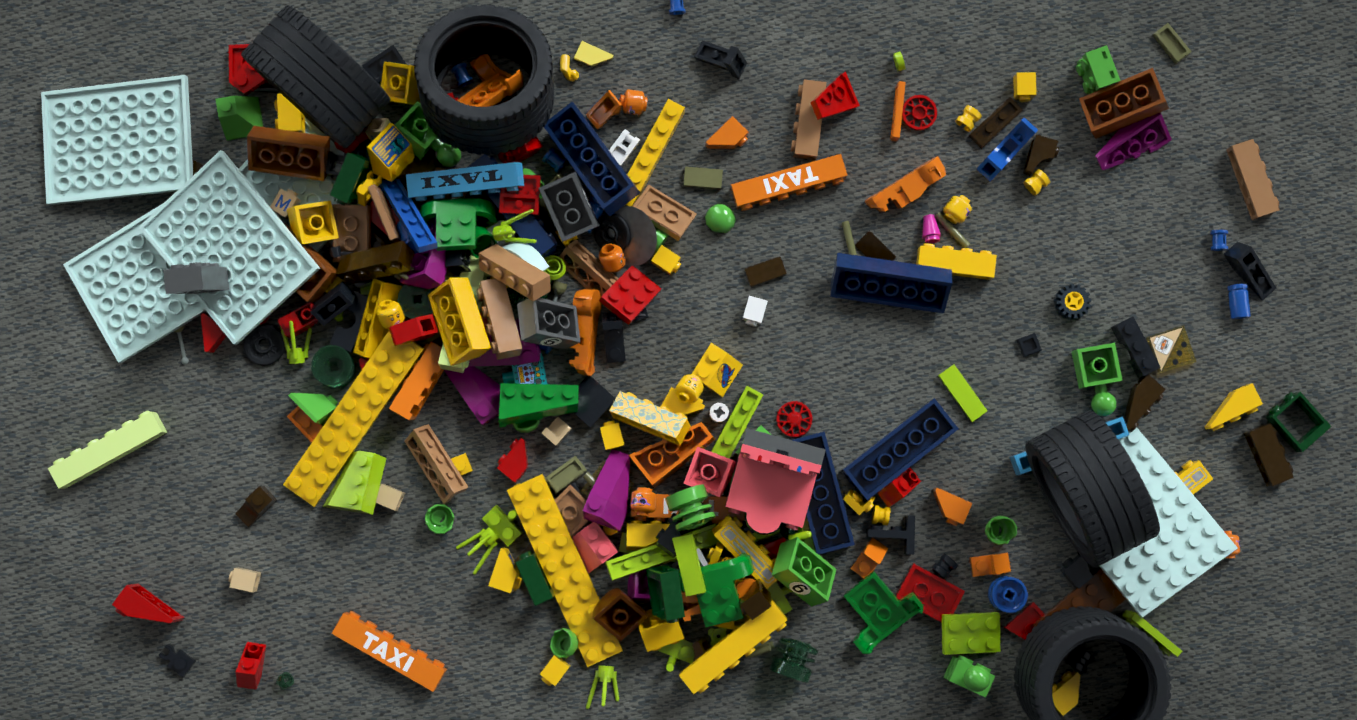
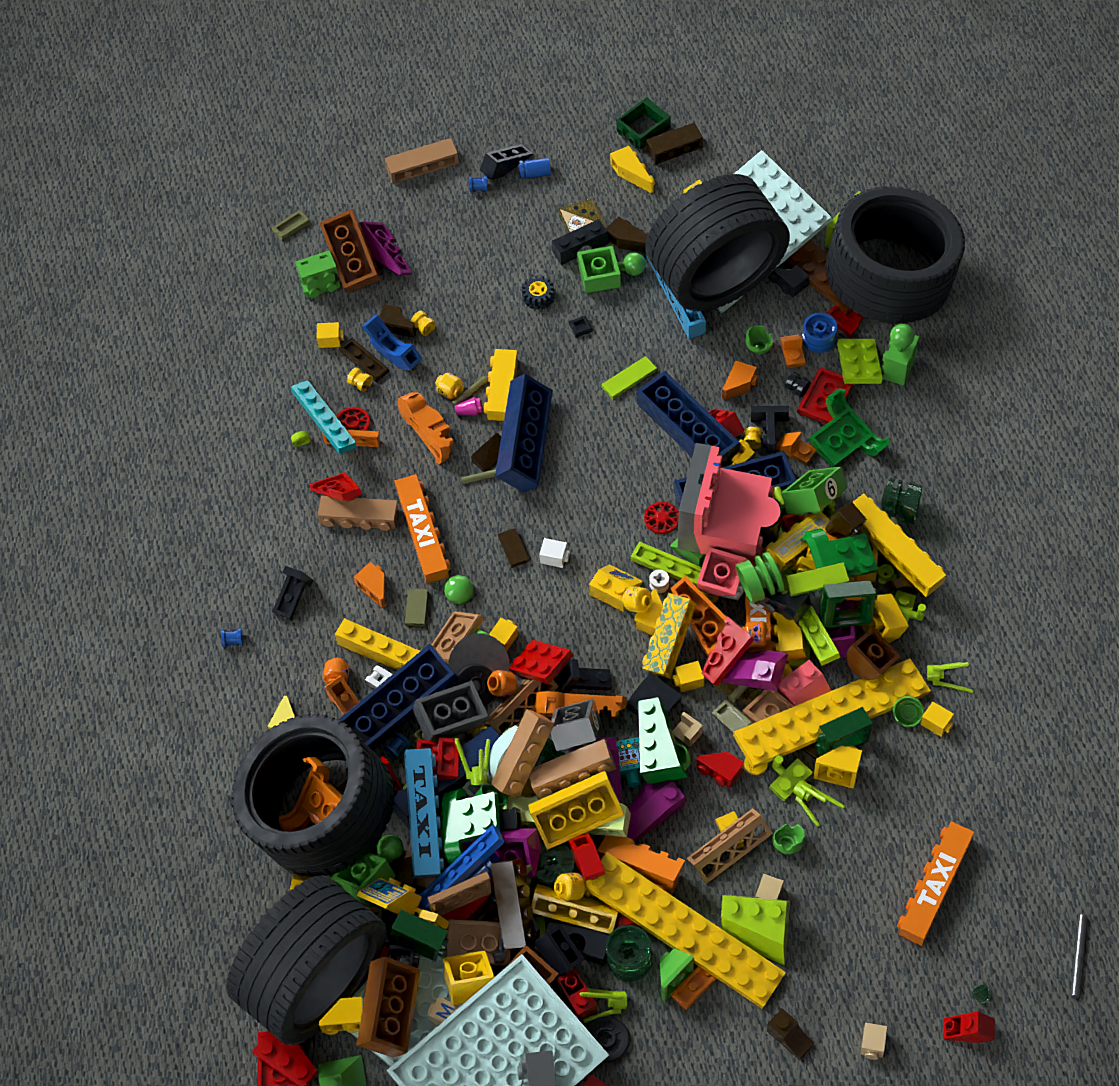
camera: 85 degrees left, 25 degrees down
(626, 474) = (729, 649): none -> wing
(919, 82) = (323, 417): none -> teal plate

